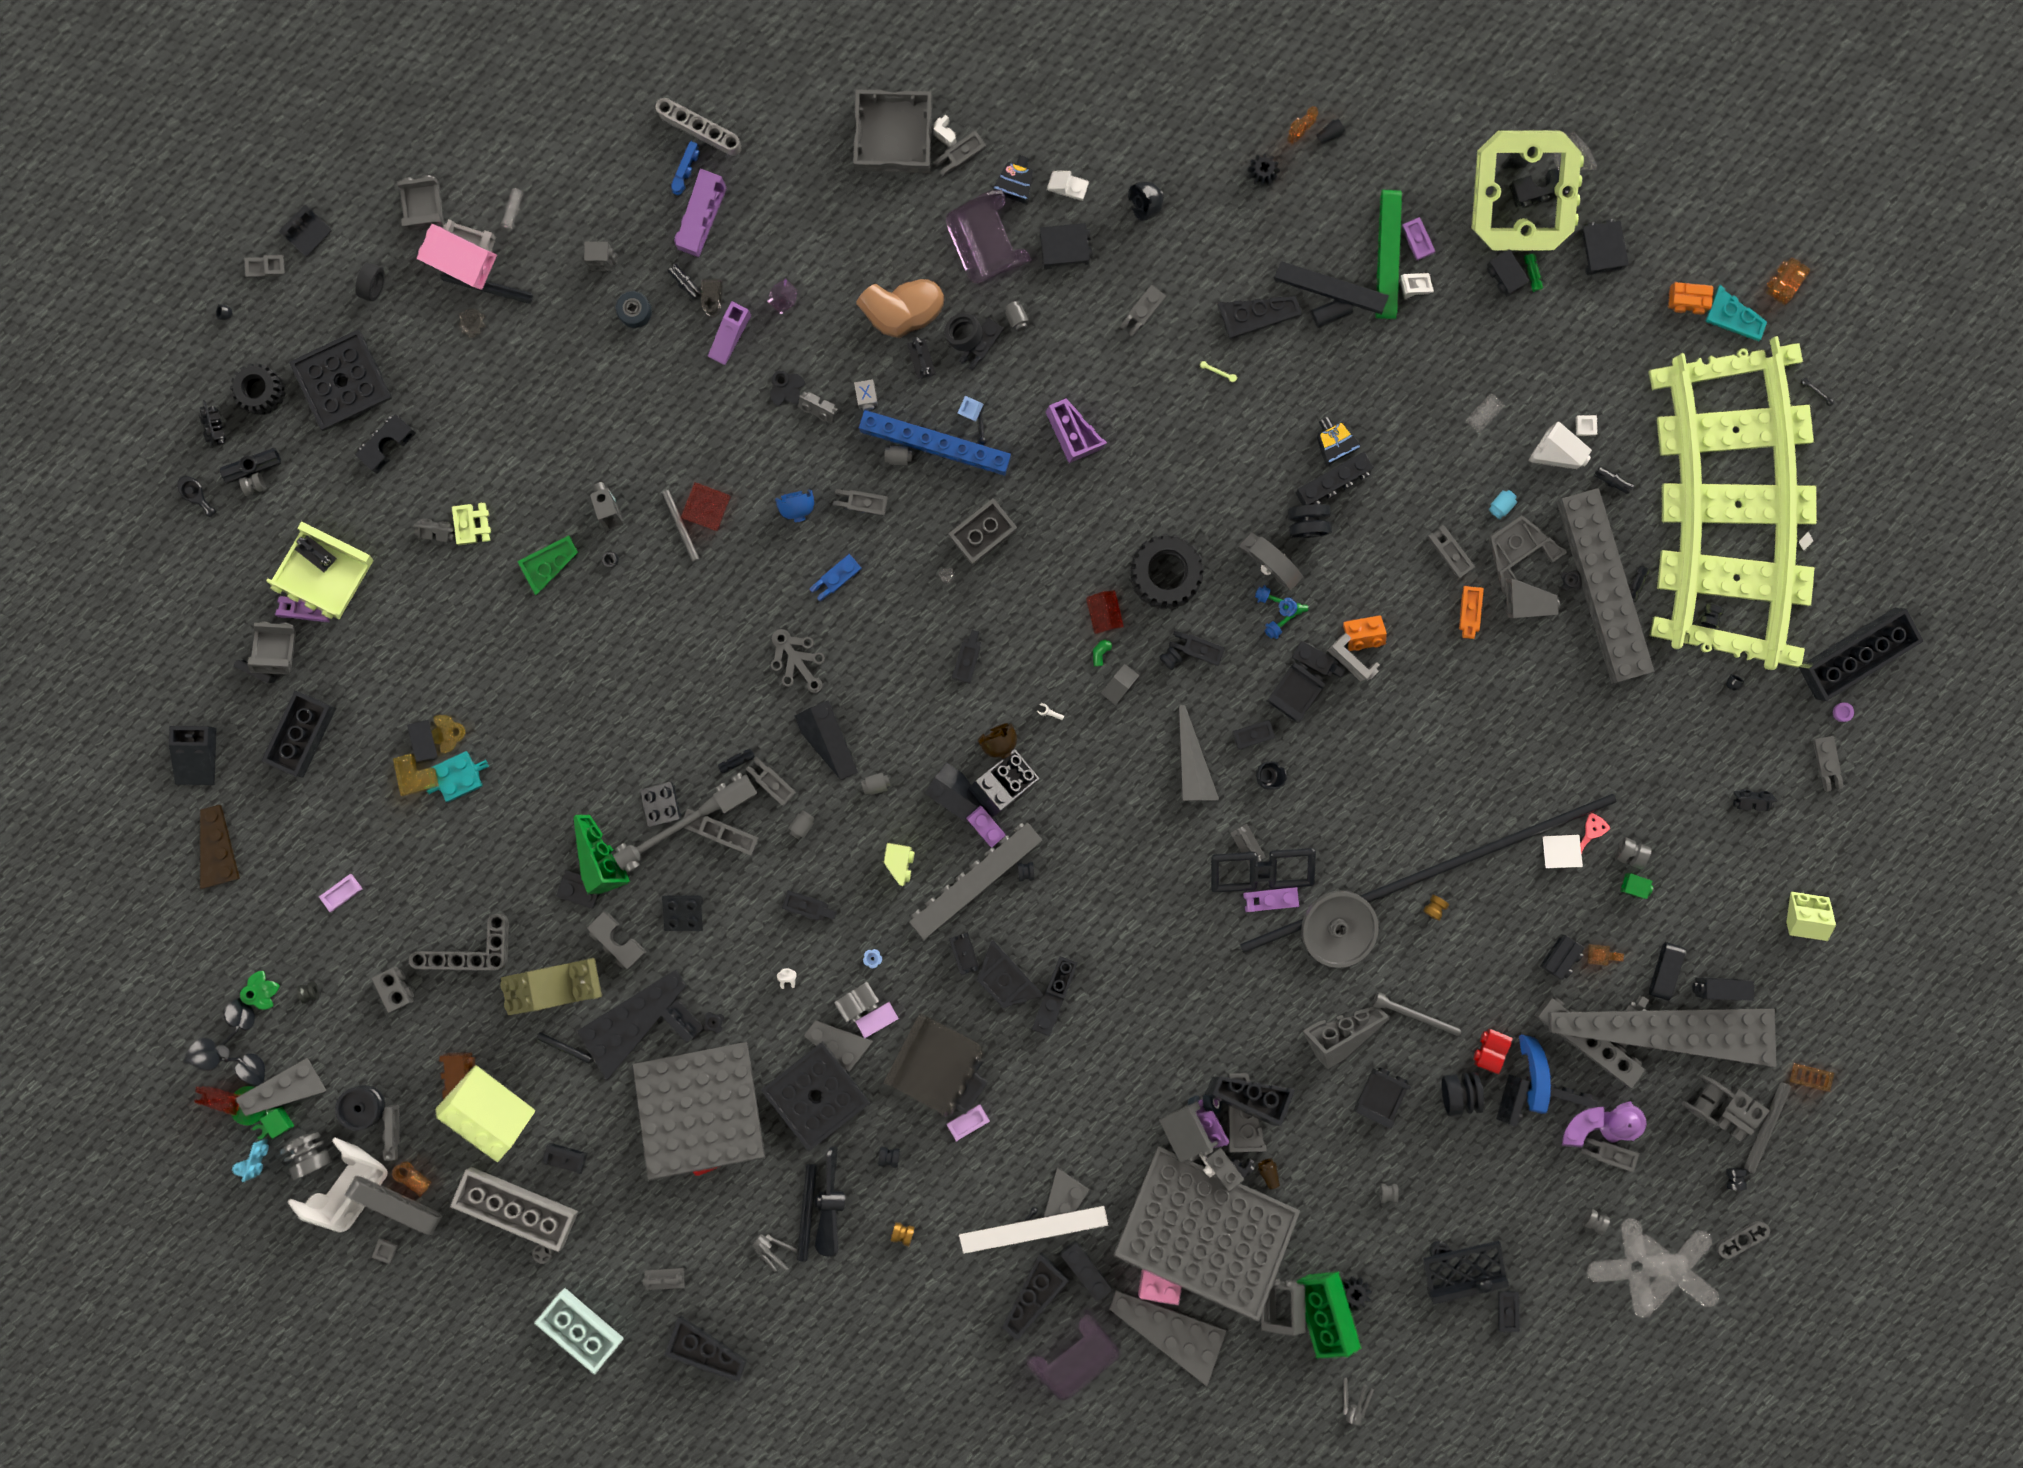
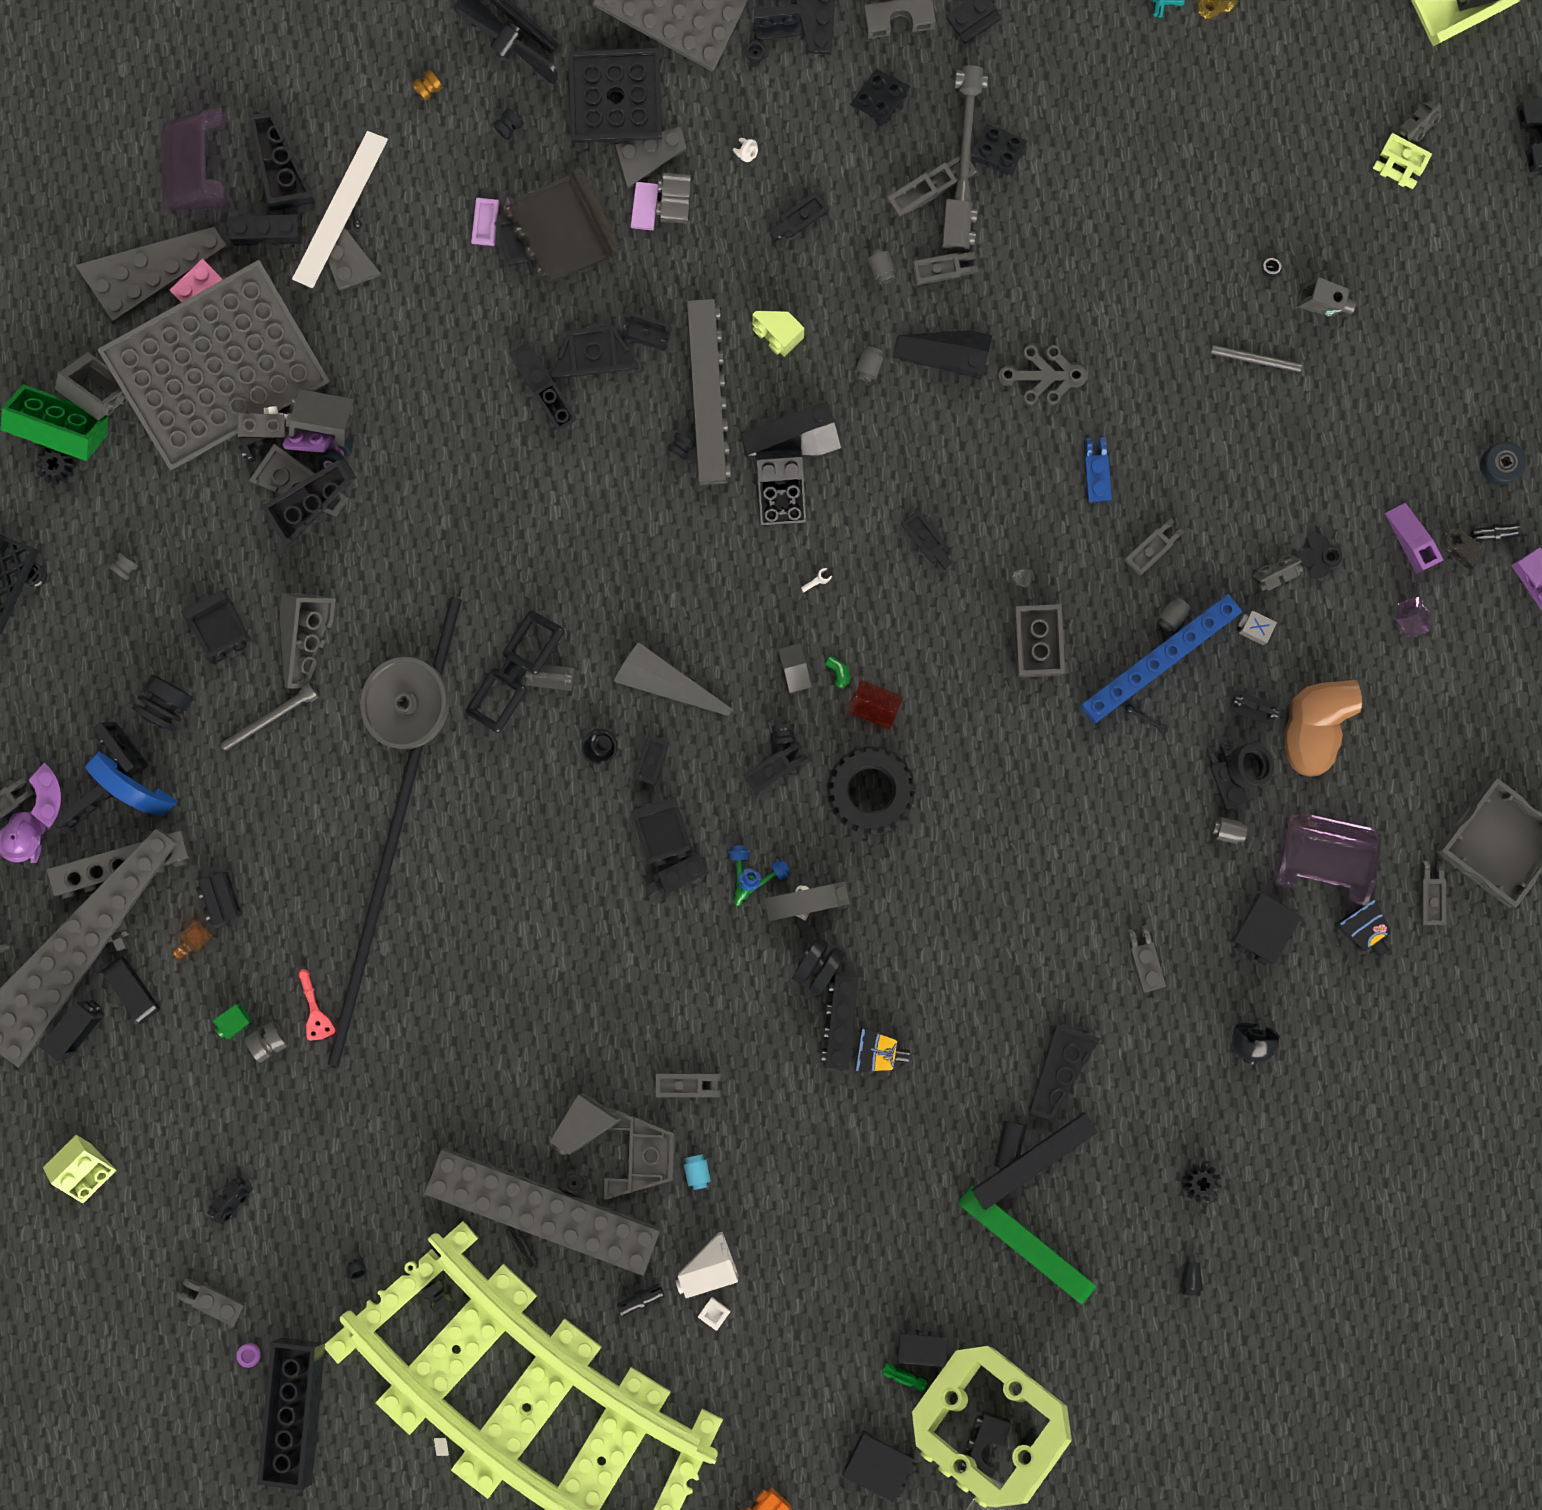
camera: 125 degrees right, 0 degrees up
(547, 563) = (1311, 206): green wing -> none
(597, 864) = (993, 51): green wedge -> none
(705, 506) = (1257, 395): clear red plate -> none
(736, 760) = (988, 249): black axle -> none
(796, 505) = (1196, 481): blue cylinder -> none
(872, 963) = (708, 237): light blue plate -> none
(945, 135) = (1461, 894): white bracket -> none
(970, 408) = (1170, 718): light blue plate -> none
(985, 826) = (752, 438): medium lavender plate -> none
(999, 742) = (823, 510): dark brown cylinder -> none
(1067, 185) = (1325, 977): white slope -> none
(1073, 431) = (1073, 800): medium lavender wedge -> none
(1232, 378) = (1015, 998): yellowish green hinge -> none
(1268, 1171) = (228, 468): dark brown cone -> none
(1272, 899) = (481, 661): medium lavender plate -> none
(1300, 126) = (1217, 1250): clear orange plate -> none
(1351, 662) = (674, 899): light grey panel -> none
(1365, 633) = (670, 941): orange bracket -> none
(1415, 284) = (976, 1249): white slope -> none
(1418, 238) = (1021, 1286): medium lavender plate -> none
(1435, 909) = (356, 810): pearl gold wheel -> none
(1470, 611) = (615, 1060): orange hinge -> none
(1484, 413) = (799, 1221): clear plate -> none
(1492, 1051) = (181, 764): red brick -> none
(1562, 851) = (319, 975): white sticker -> none

